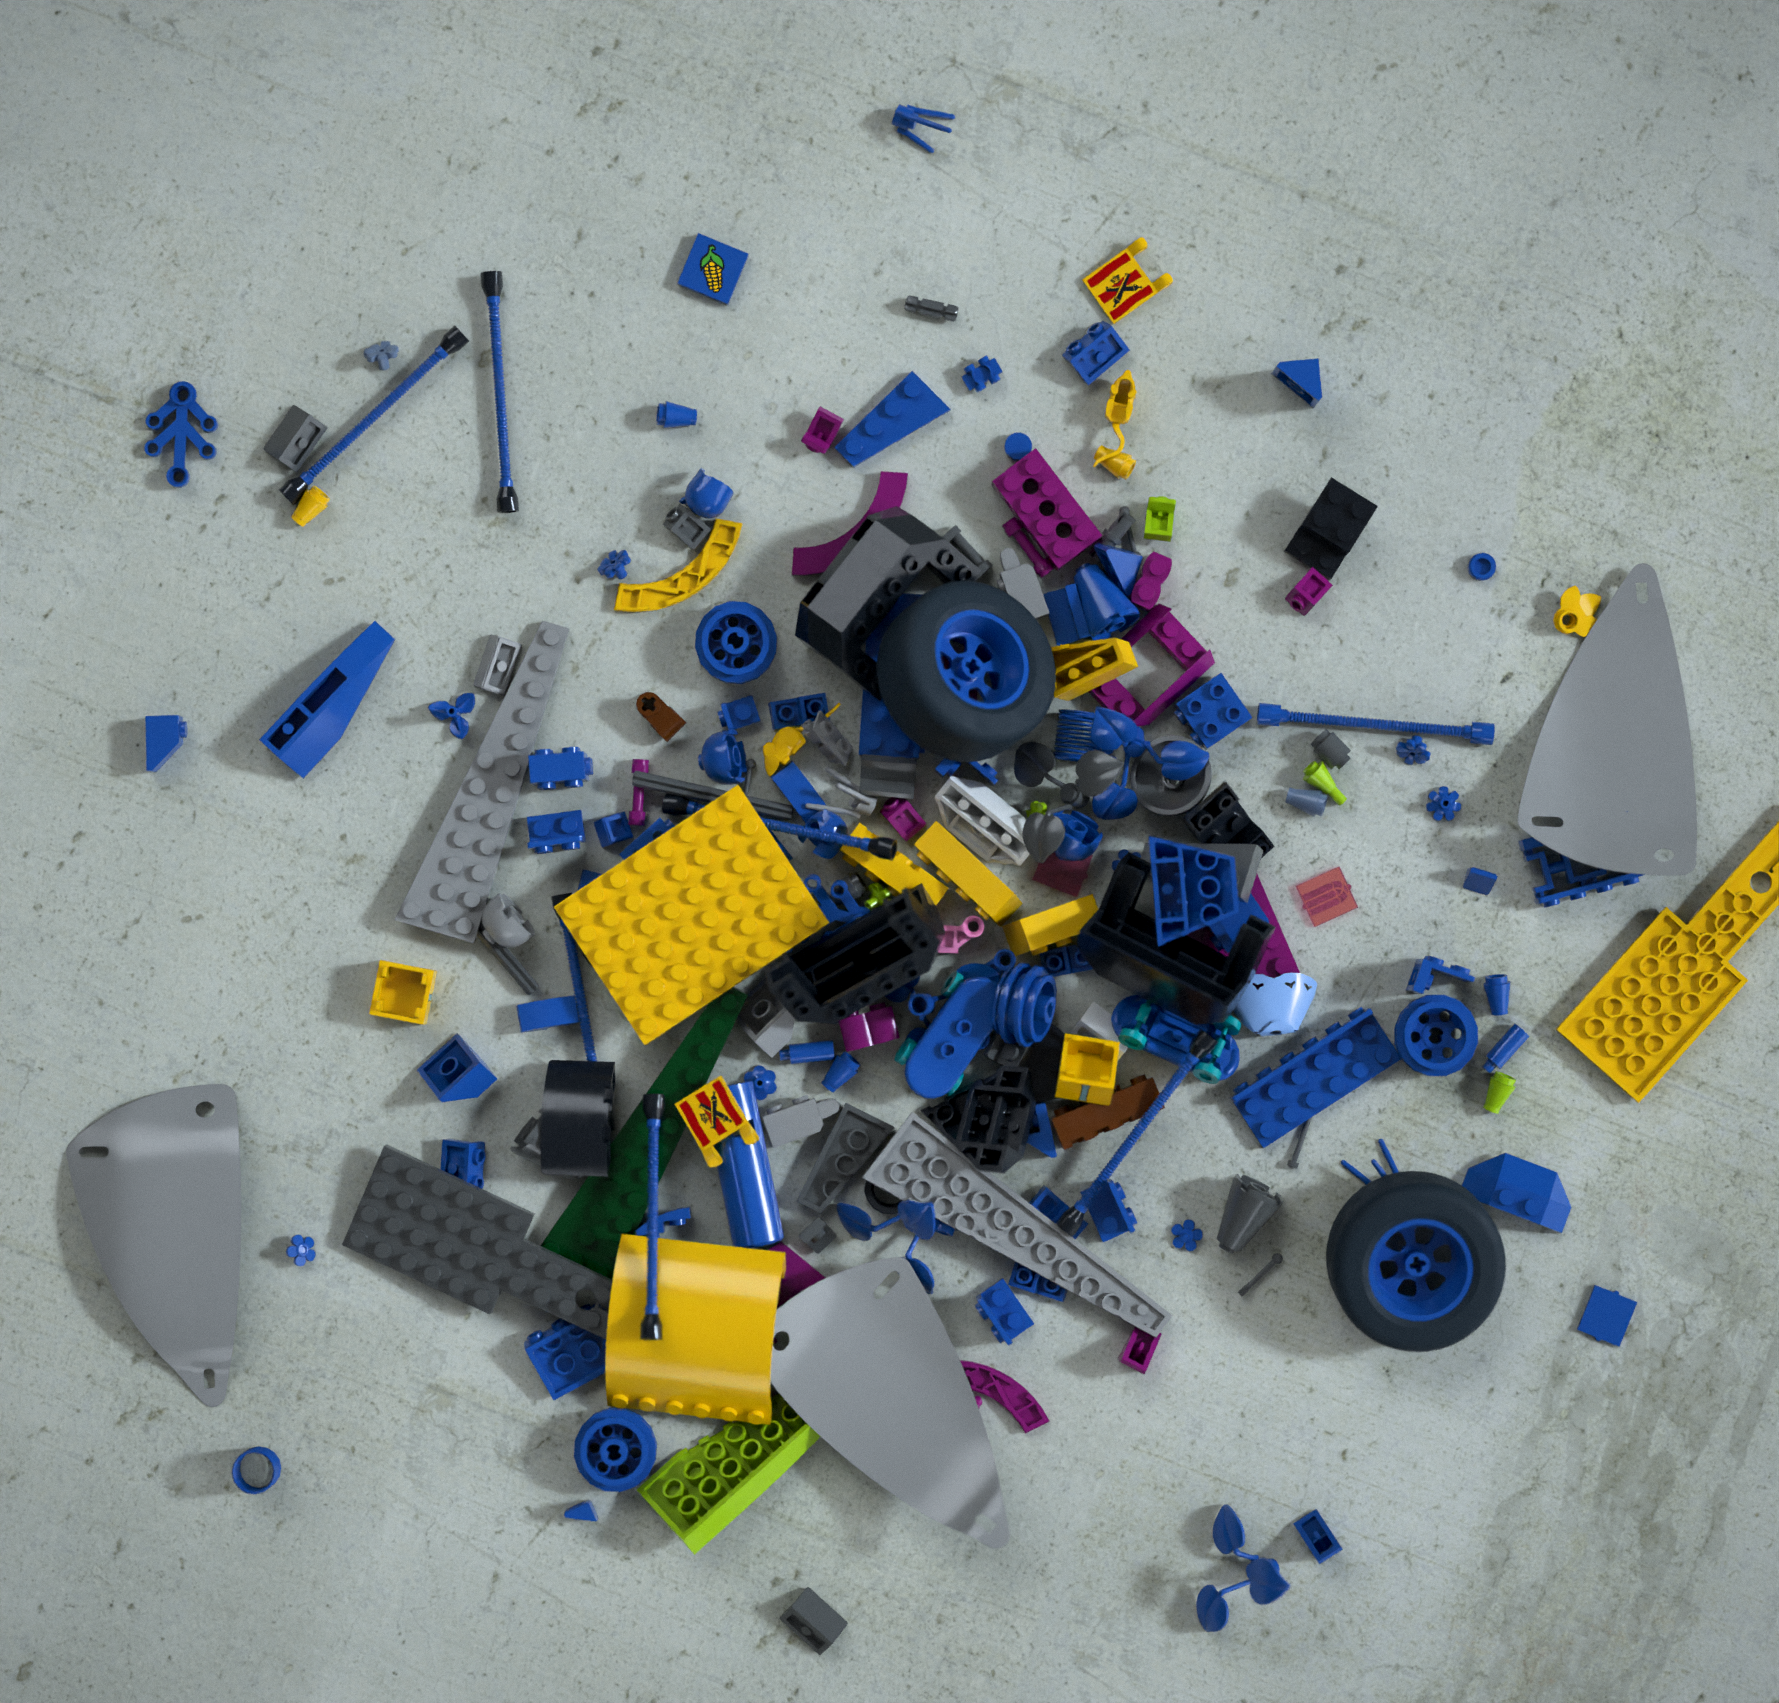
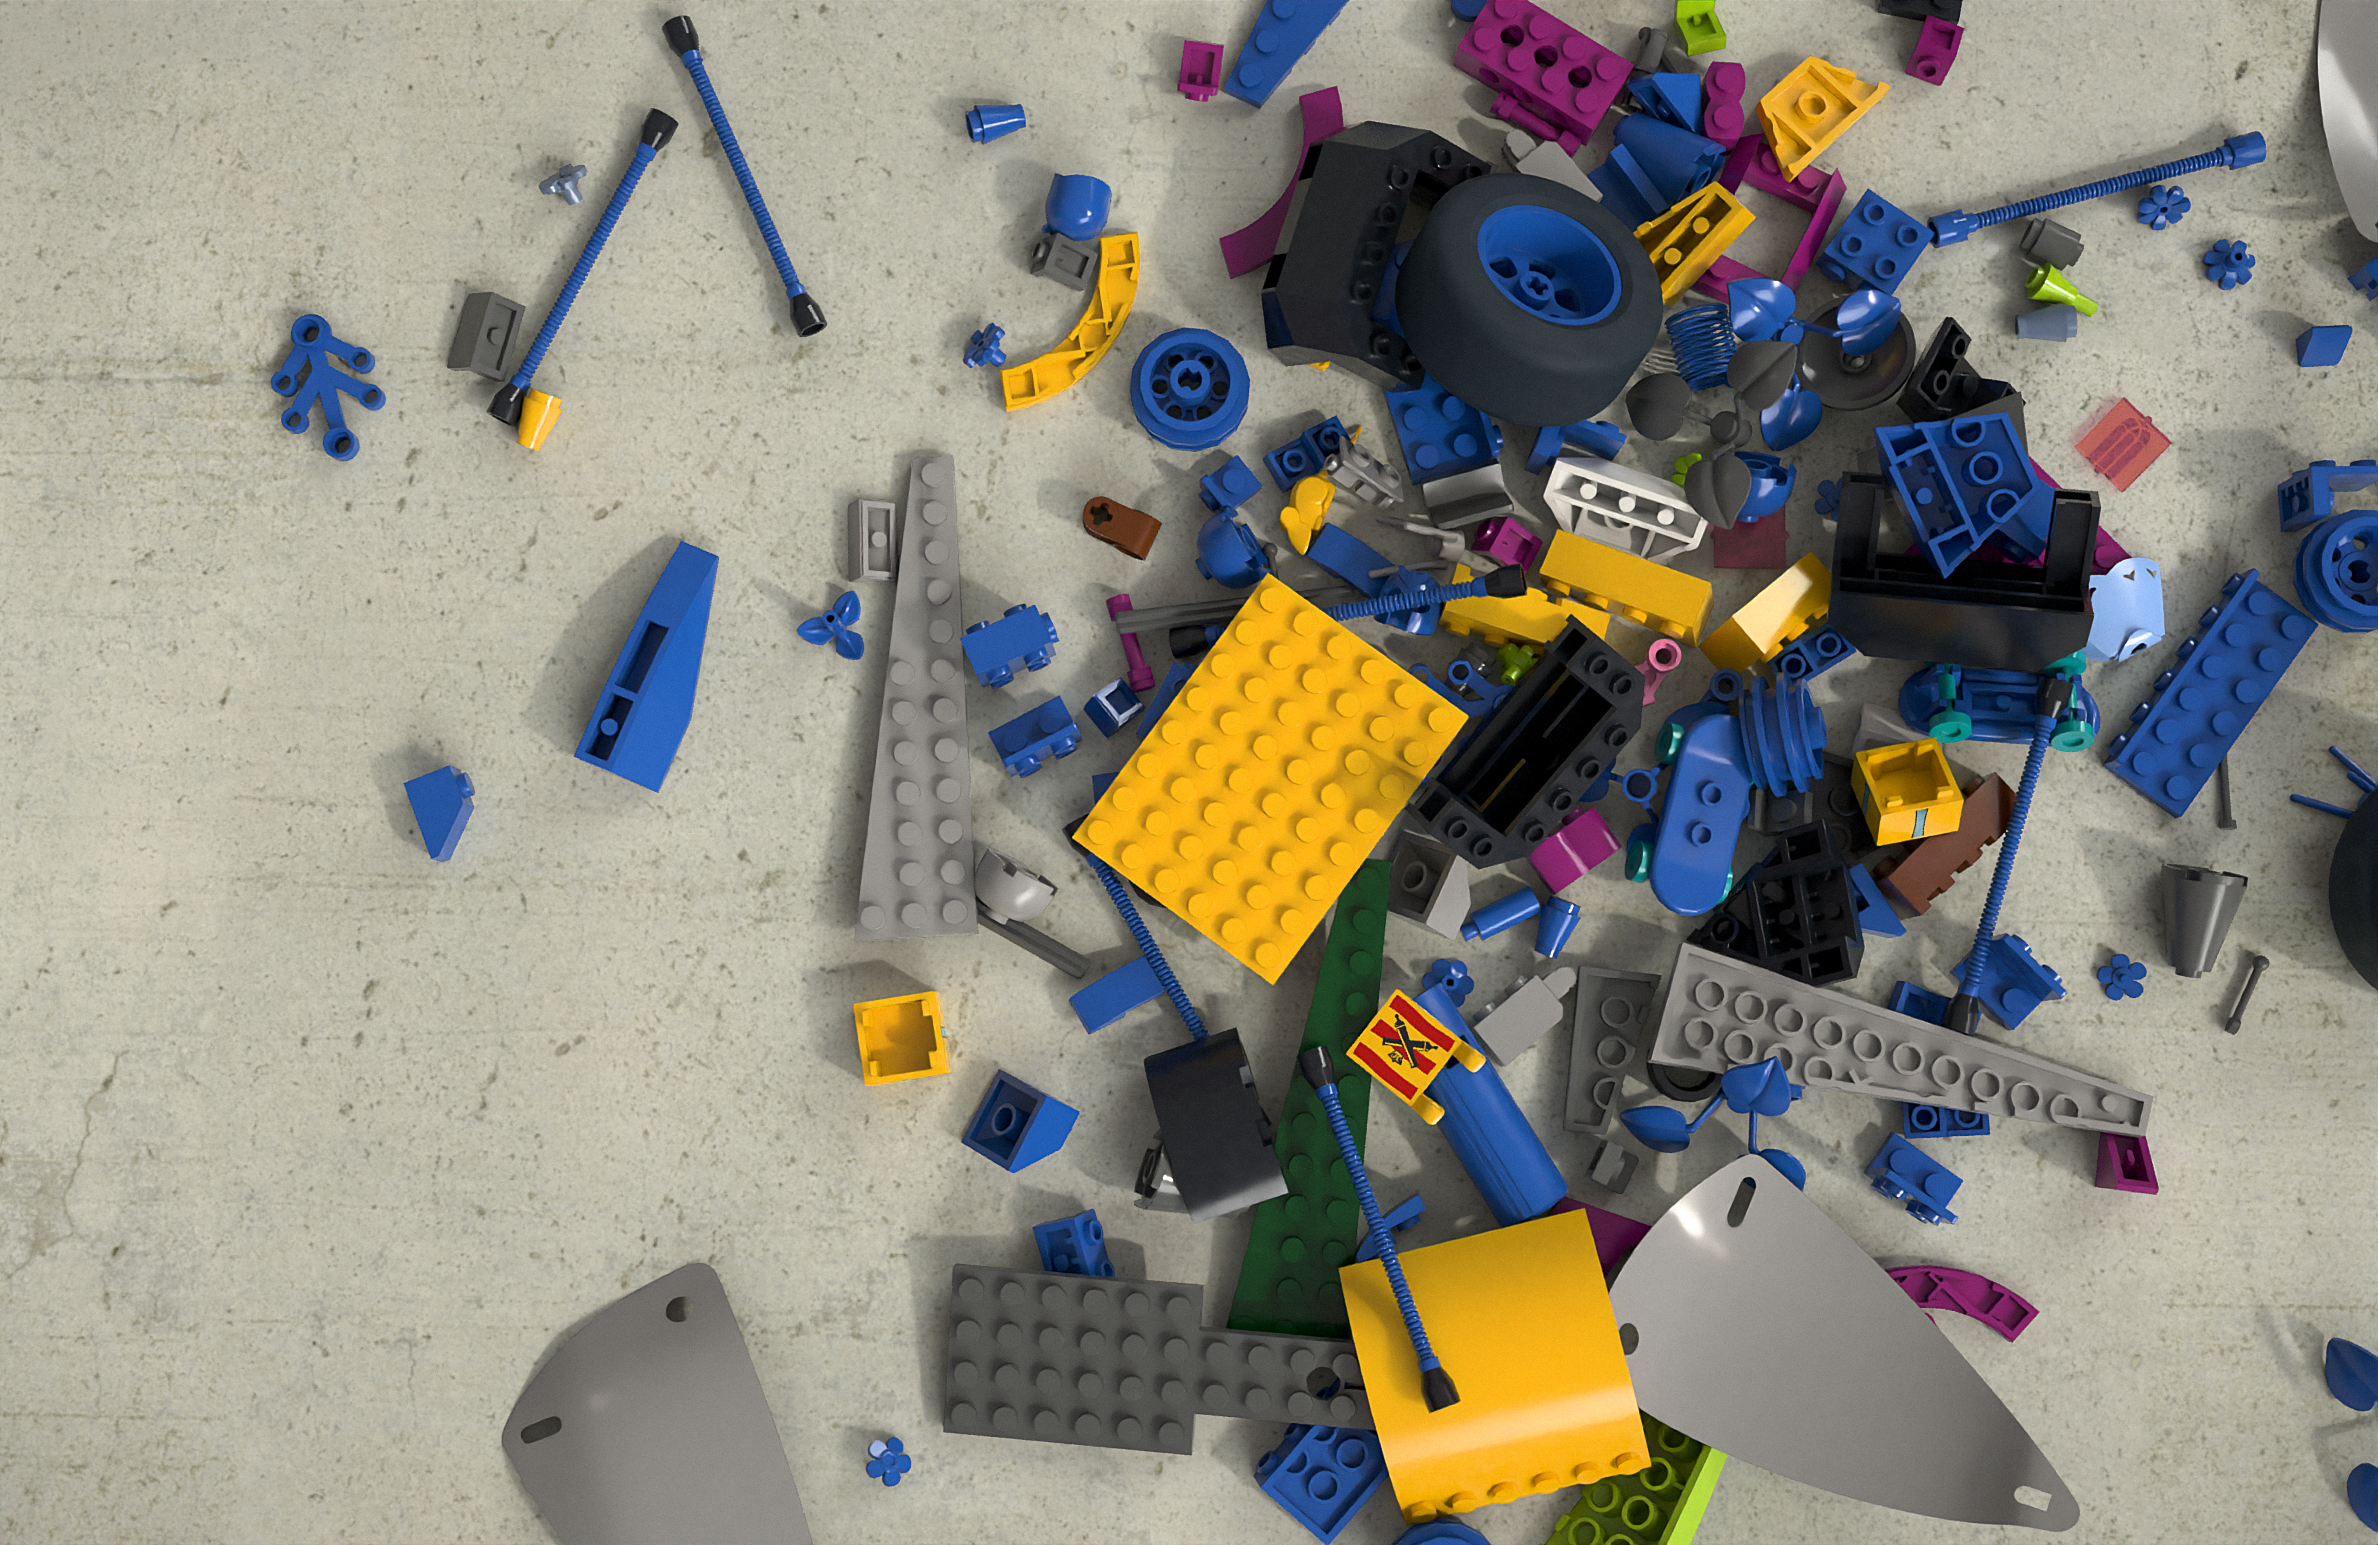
camera: 15 degrees left, 5 degrees down
(1210, 605) = (1813, 111): none -> yellow wing

